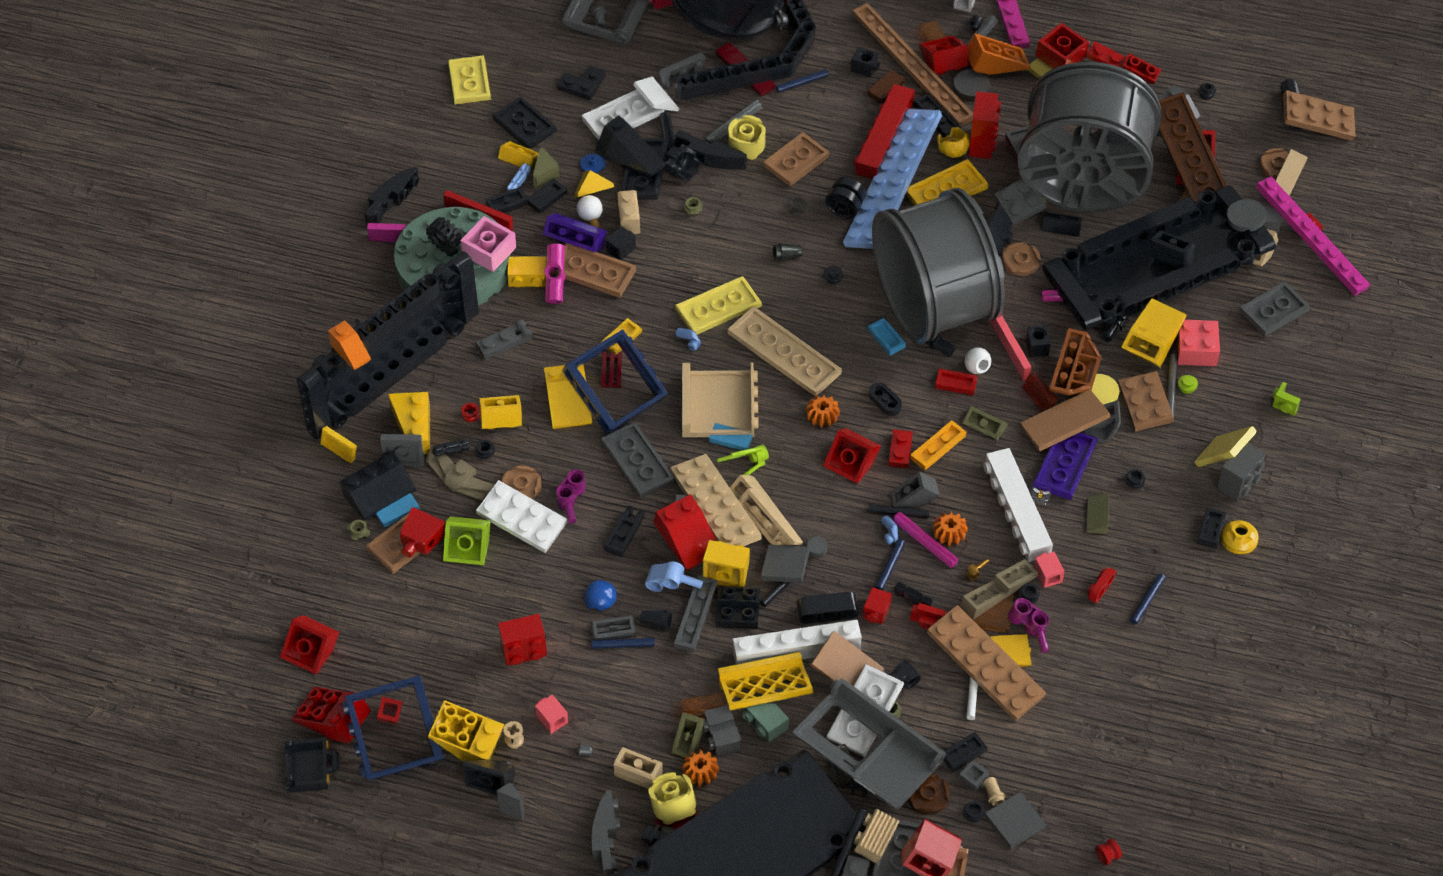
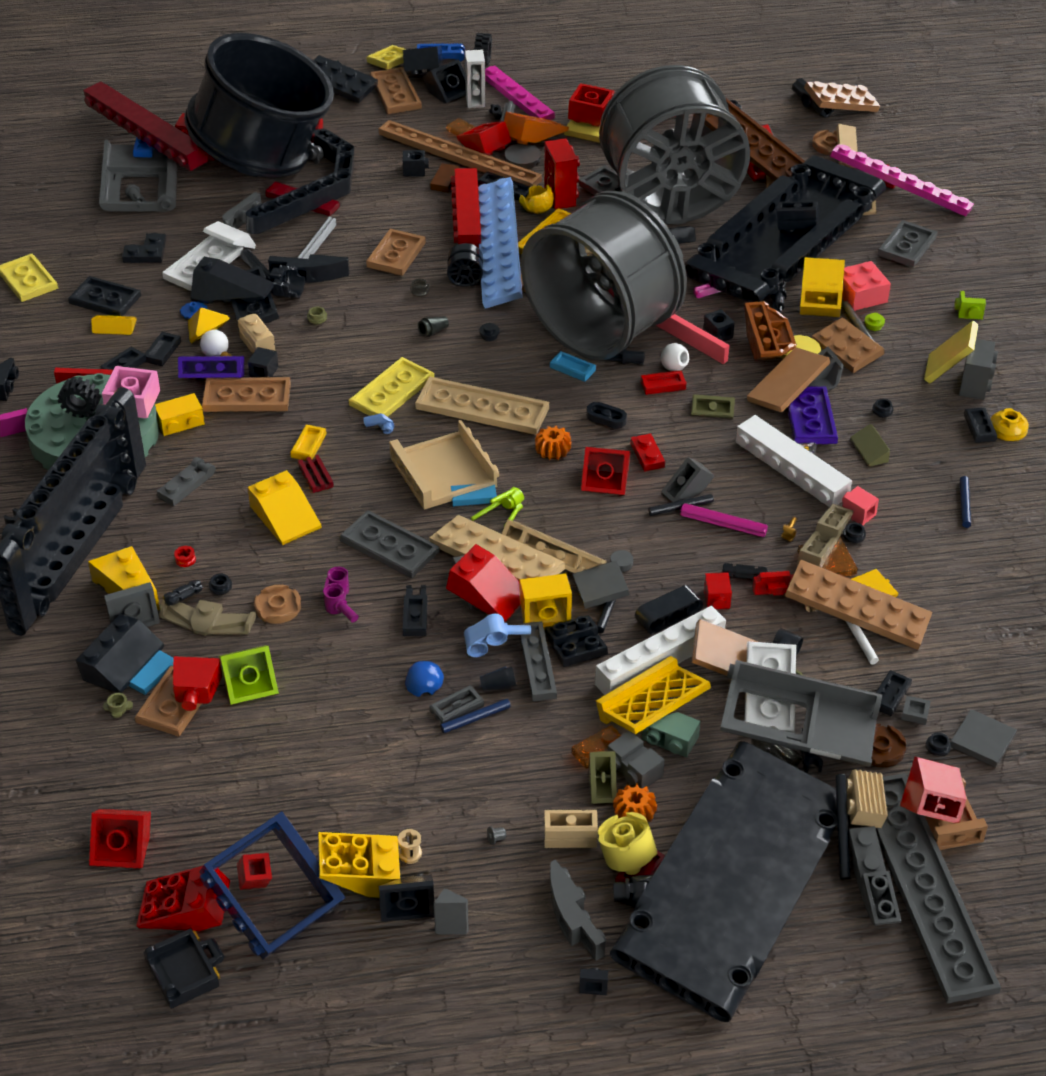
camera: 25 degrees left, 10 degrees down
(338, 444) = (52, 629): yellow tile -> none
(348, 345) = (38, 501): orange slope -> none
(500, 412) = (221, 542): yellow brick -> none
(519, 177) = (125, 339): light blue axle -> none
(521, 516) = (296, 632): white plate -> none
(522, 639) = (368, 745): red brick -> none
(545, 169) = (150, 325): olive slope -> none
(551, 713) = (439, 810): coral brick -> none
(555, 262) = (214, 415): dark pink piece -> none
(589, 397) = (313, 498): dark blue window -> none
(747, 136) = (339, 241): light yellow brick -> none
(800, 81) = (361, 194): dark blue bar -> none
(890, 564) = (703, 550): dark blue bar -> none
(892, 528) = (689, 525): medium blue arm -> none
(938, 445) = (683, 437): light orange plate -> none
(950, 528) = (742, 501): orange gear -> none
(995, 795) = (945, 719): tan pin -> none
(1033, 619) = (877, 550): magenta beam -> none
(1039, 392) = (748, 365): clear red tile -> none
(1104, 579) = (917, 496): red plate -> none
(1246, 215) = (846, 169): dark grey tile -> none

